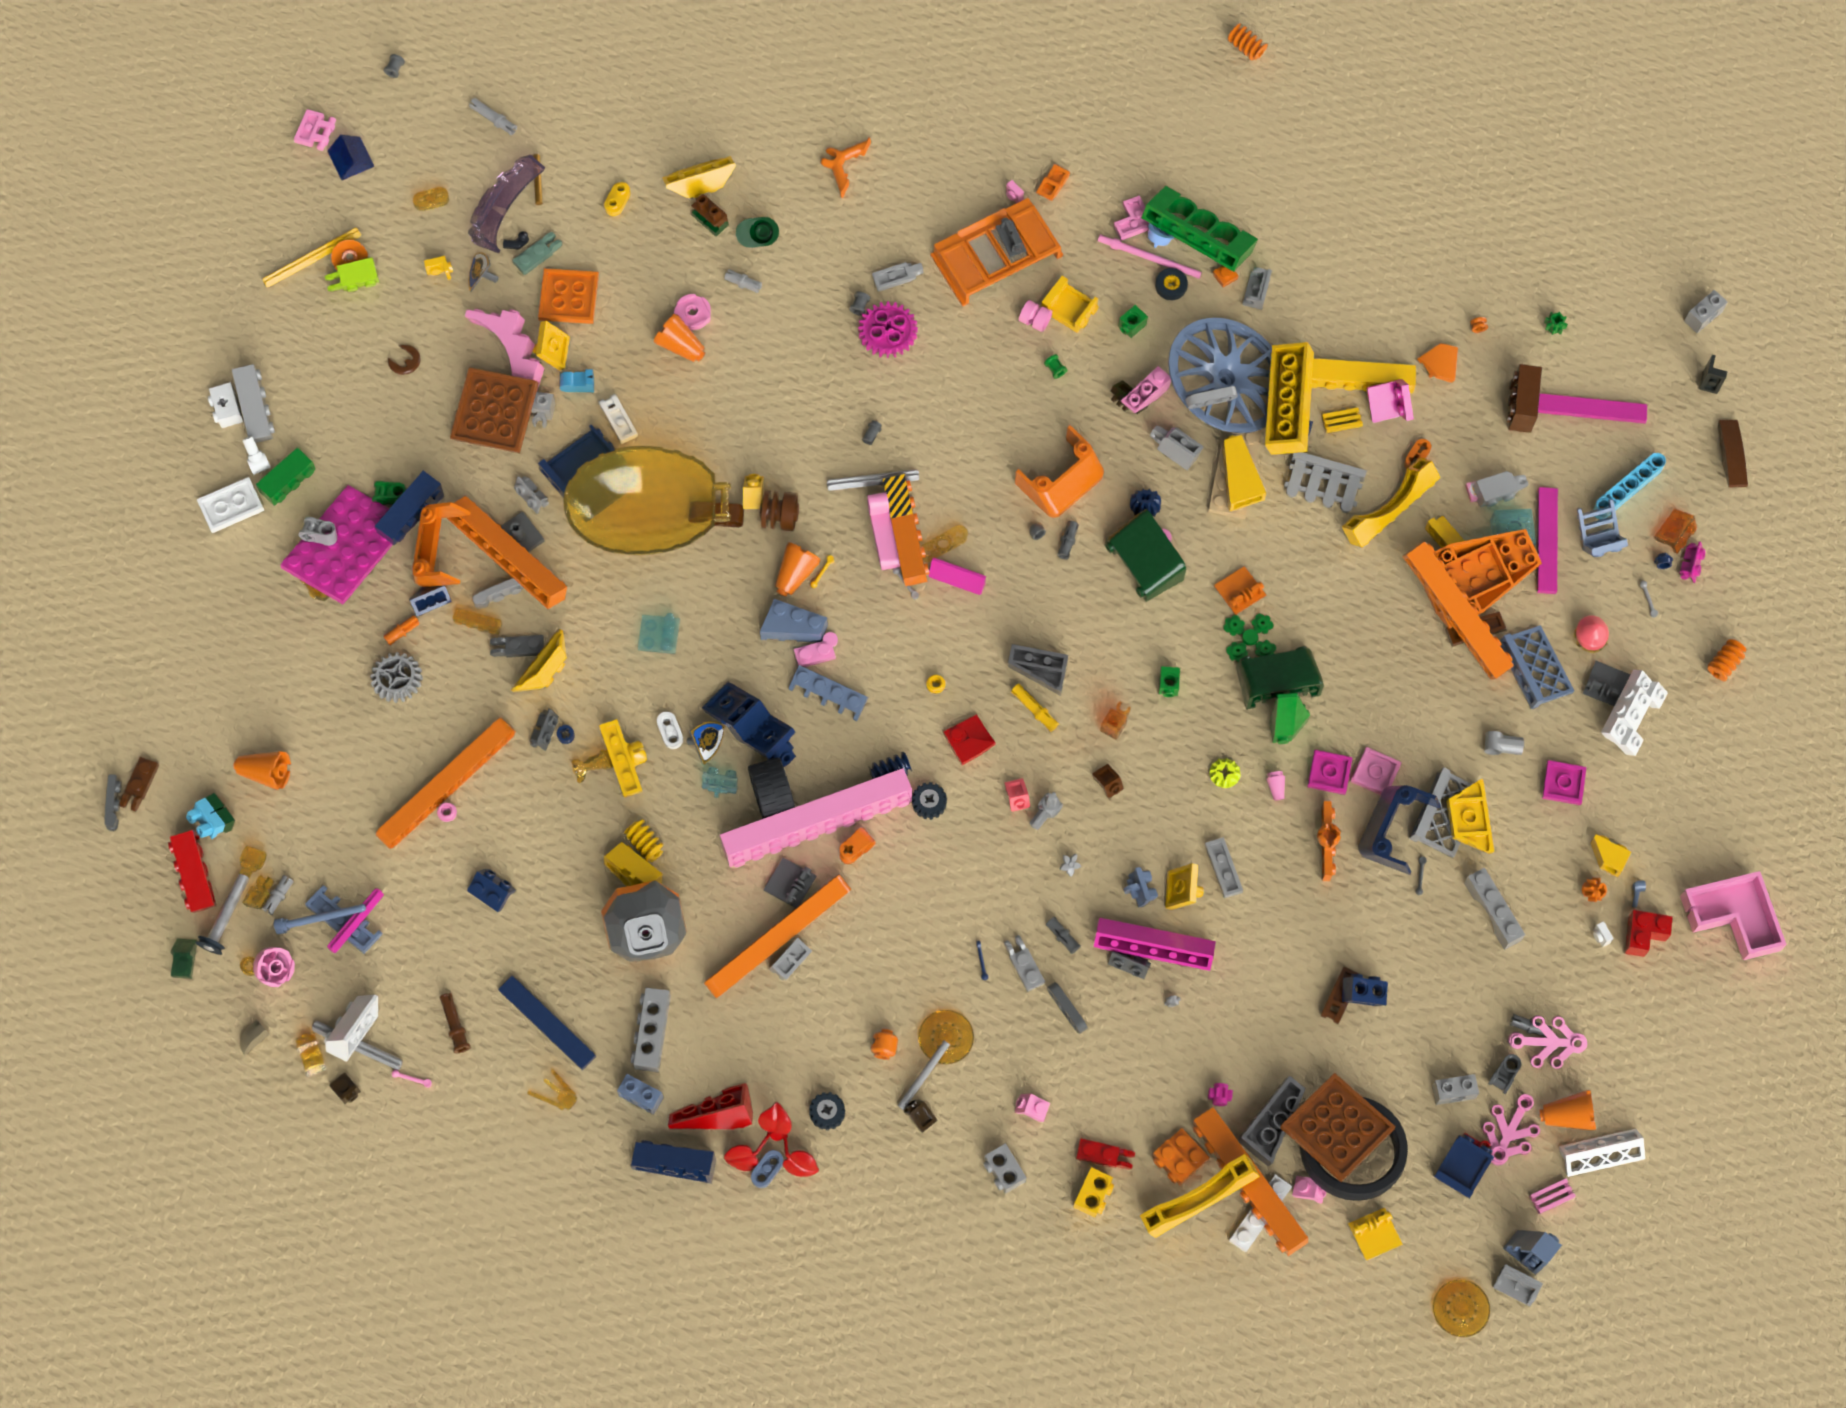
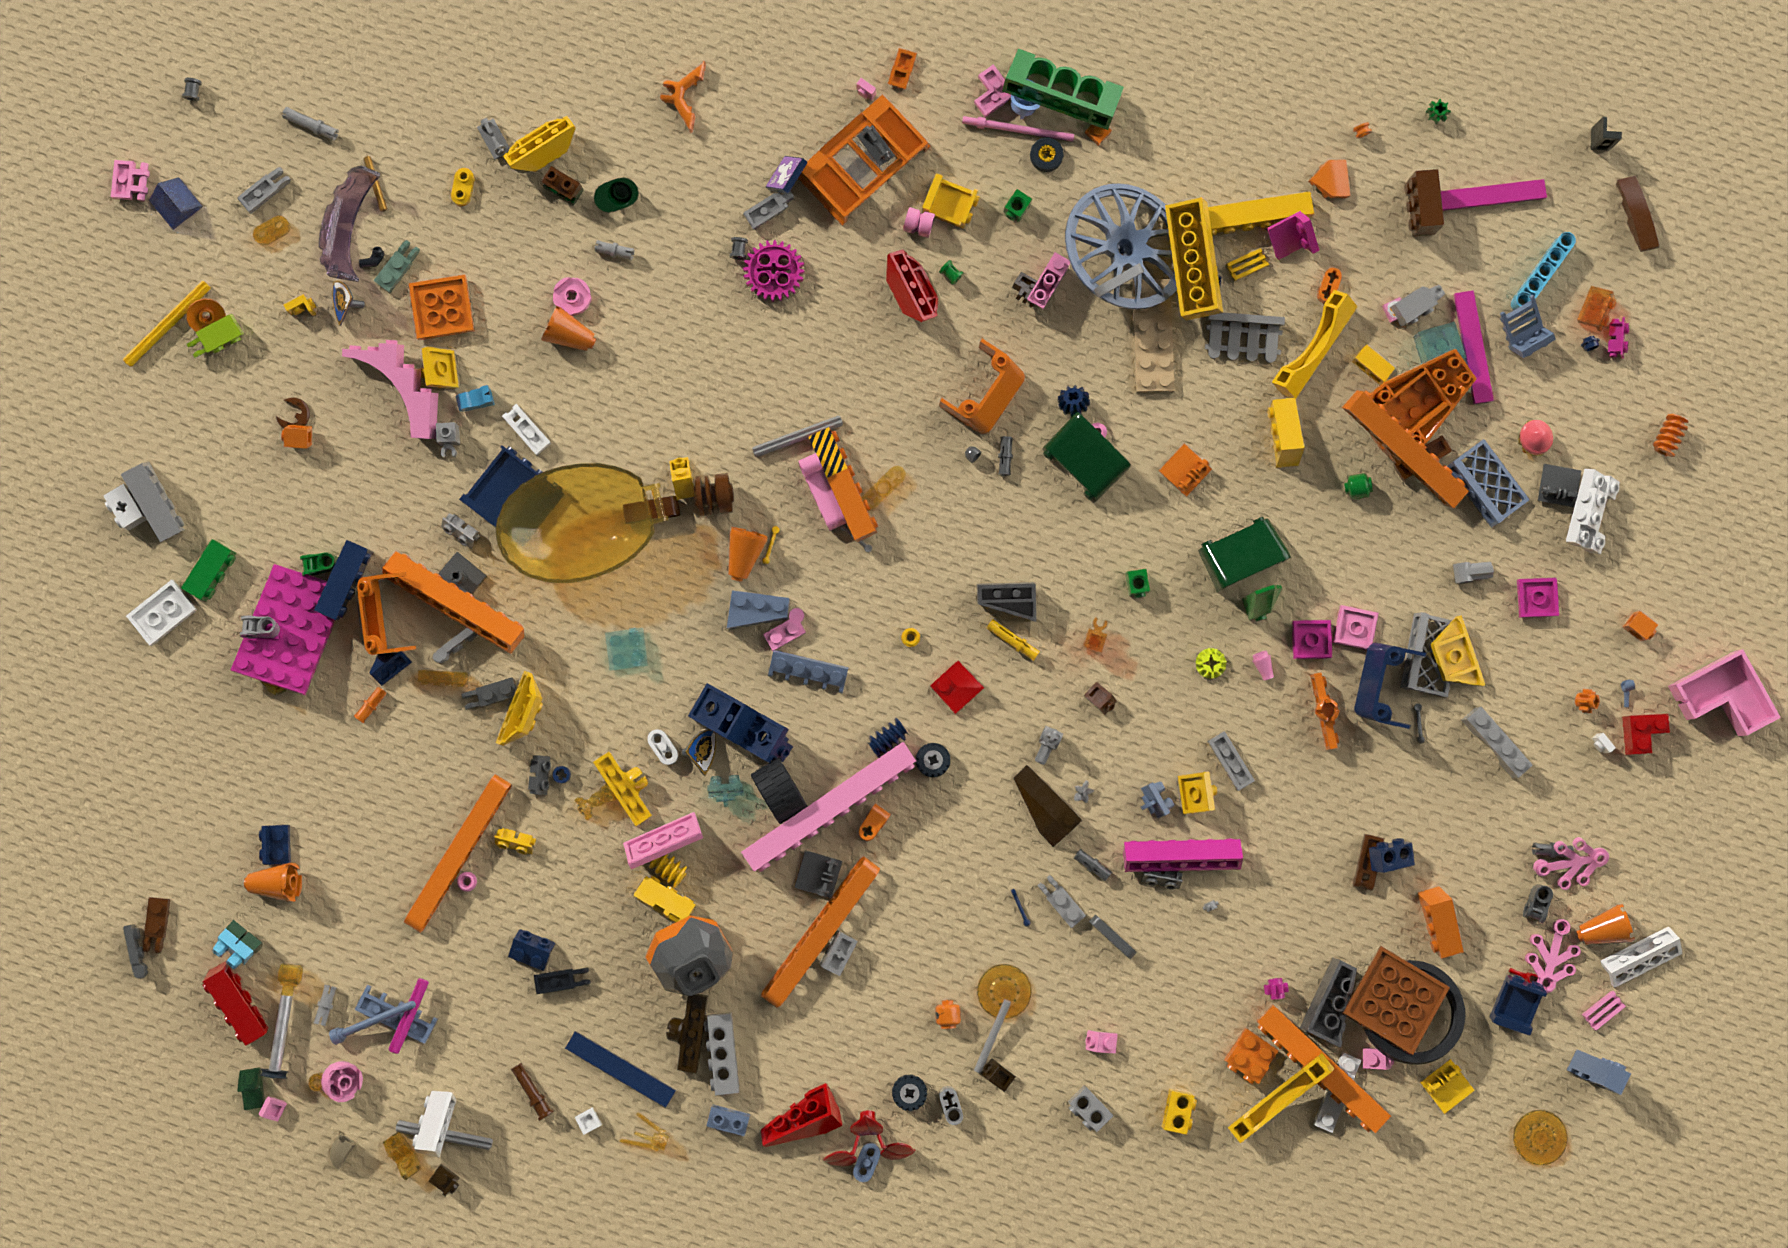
camera: 20 degrees left, 15 degrees up
(198, 979) = (272, 1108): none -> bright pink plate
(256, 459) = (174, 559): white pin -> none
(257, 895) = (305, 1010): clear yellow plate -> none
(274, 734) = (275, 844): none -> dark blue bracket
(383, 670) = (362, 754): light grey gear -> none
(403, 377) = (297, 436): none -> orange brick
(427, 1083) = (522, 1154): bright pink hinge -> none
(434, 163) = (263, 190): none -> light grey hinge
(494, 410) = (400, 453): dark orange plate -> none
(496, 782) = (506, 839): none -> yellow hinge
(501, 1063) = (588, 1120): none -> white plate
(511, 924) = (559, 980): none -> black hinge
(624, 1000) = (689, 1032): none -> dark brown plate
(646, 813) = (662, 840): none -> bright pink tile
(656, 162) = (493, 138): none -> light grey hinge
(674, 1161) = (777, 1177): dark blue wedge -> none
(862, 1135) = (944, 1102): none -> light grey beam
(872, 431) = (784, 386): dark grey pin -> none
(921, 247) = (786, 174): none -> tile
(957, 576) = (905, 520): dark pink slope -> none
(1013, 368) = (911, 286): none -> red wedge
(1017, 794) = (1016, 733): coral bracket -> none
(1031, 872) = (1050, 813): none -> dark brown wedge
(1103, 1154) = (1178, 1070): red hinge -> none
(1177, 446) = (1091, 332): light grey hinge -> none
(1241, 475) = (1162, 351): yellow slope -> none
(1249, 636) = (1205, 517): green plant -> none
(1257, 288) = (1133, 140): light grey hinge -> none
(1345, 576) = (1286, 432): none -> yellow wedge
(1401, 1069) = (1441, 922): none -> orange wedge
(1407, 640) = (1359, 486): none -> green head
(1455, 1089) = (1495, 930): light grey brick -> none
(1517, 1285) = (1588, 1104): light grey hinge -> none
(1610, 856) = (1595, 663): yellow slope -> none
(1653, 613) = (1590, 400): light grey hinge -> none
(1662, 832) = (1640, 626): none -> orange brick
(1705, 311) = (1584, 65): light grey brick -> none

